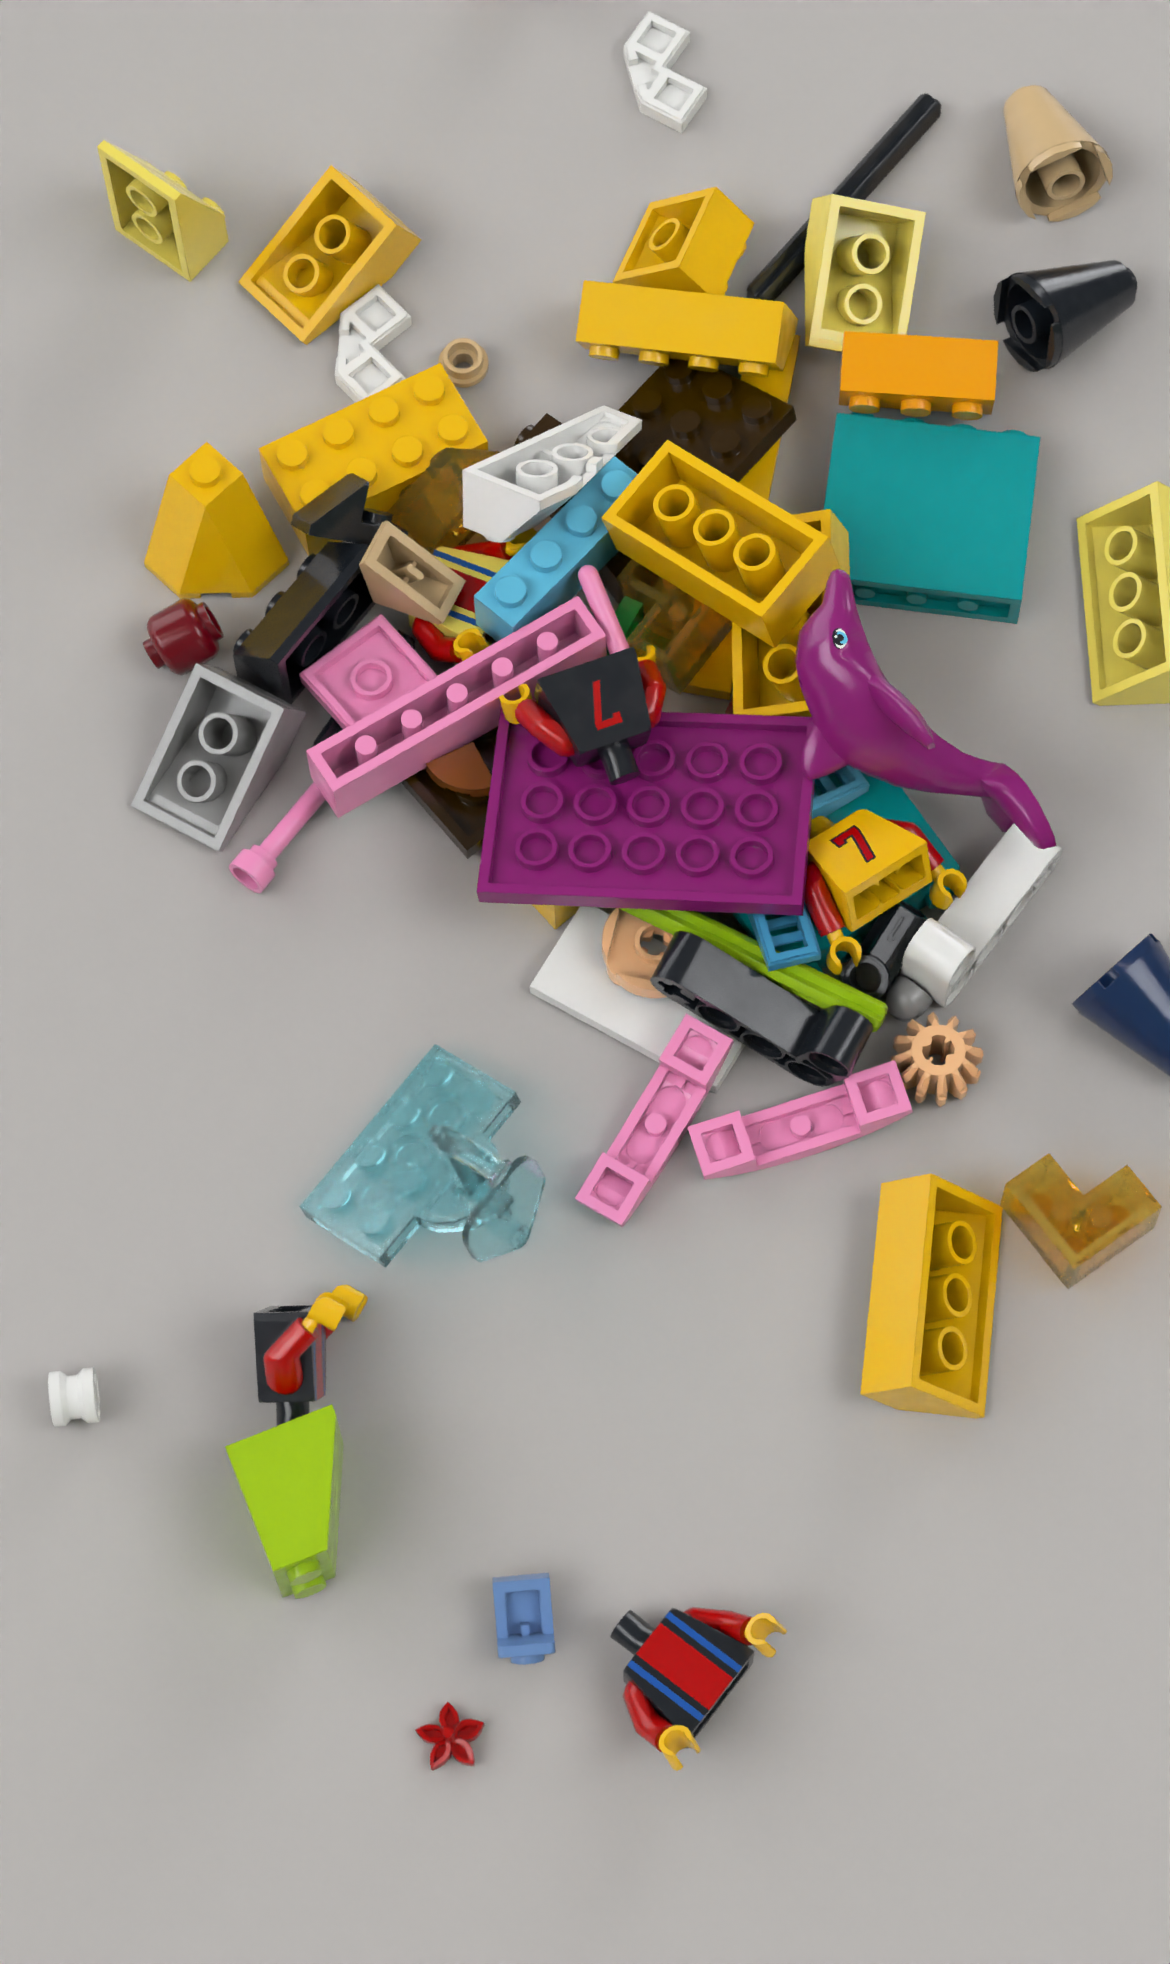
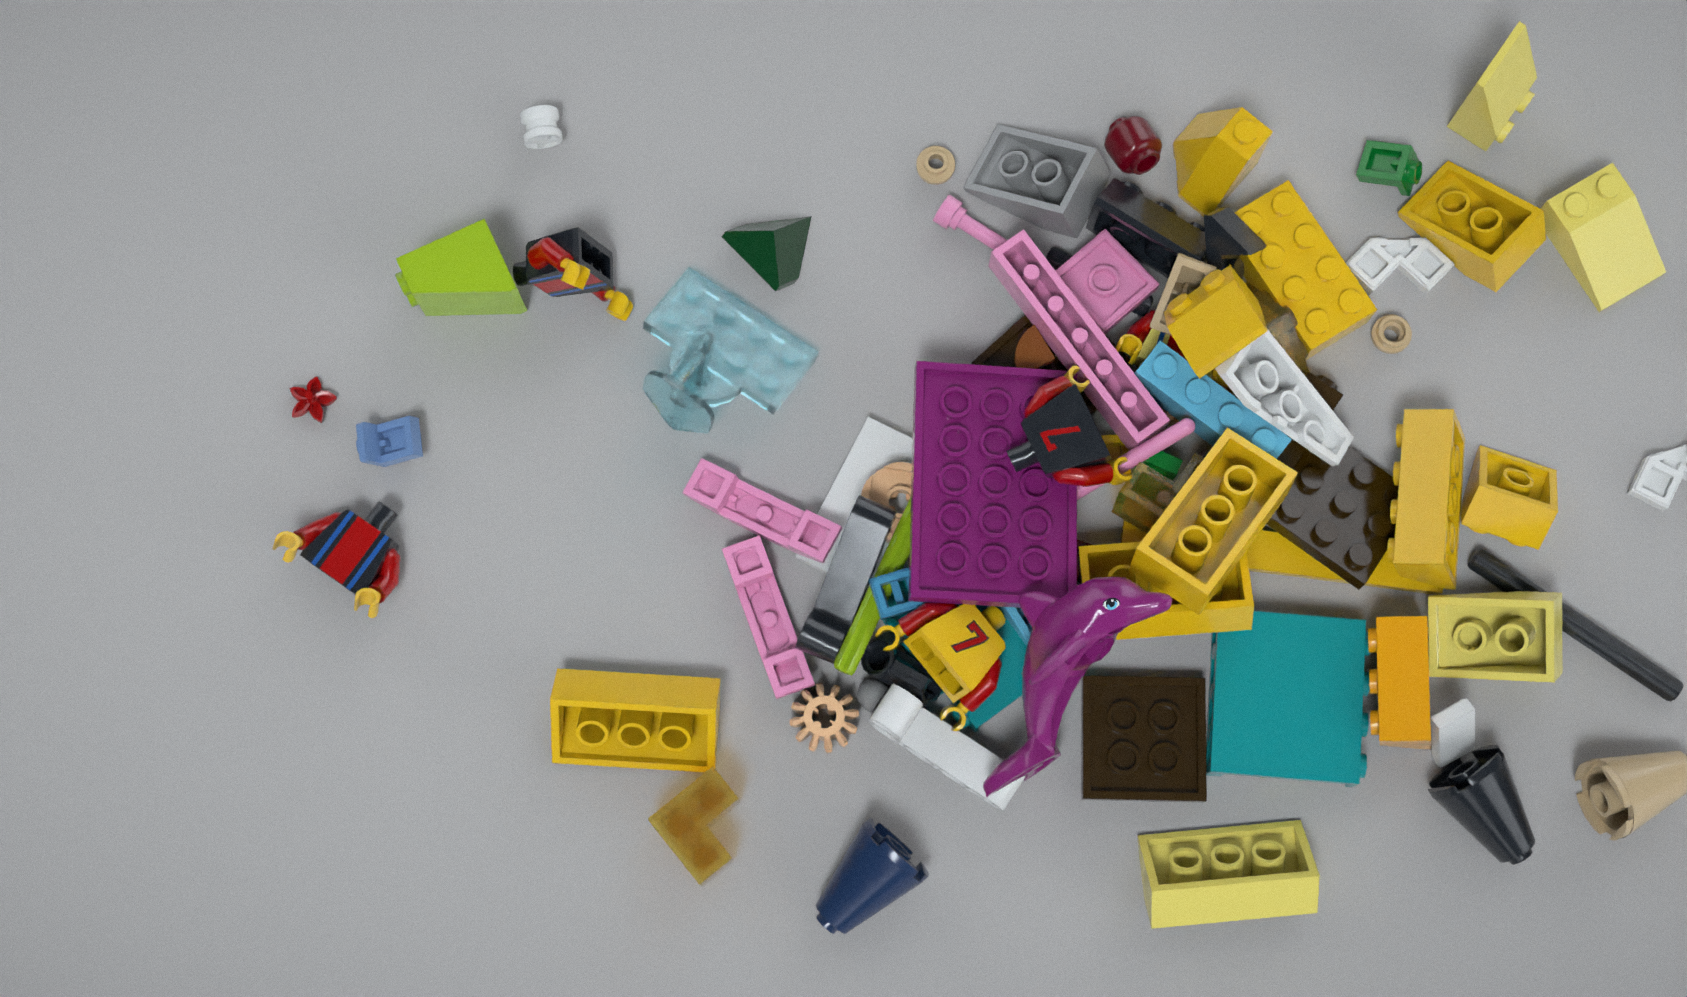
camera: 85 degrees right, 10 degrees up
(183, 897) = (931, 175): none -> tan plate
(241, 343) = (1390, 166): none -> green bracket
(280, 1097) = (772, 248): none -> dark green slope
(357, 119) = (1603, 237): none -> light yellow slope
(458, 523) = (1215, 320): none -> yellow slope
(976, 325) = (1453, 732): none -> white tile
(980, 677) = (1143, 739): none -> dark brown plate

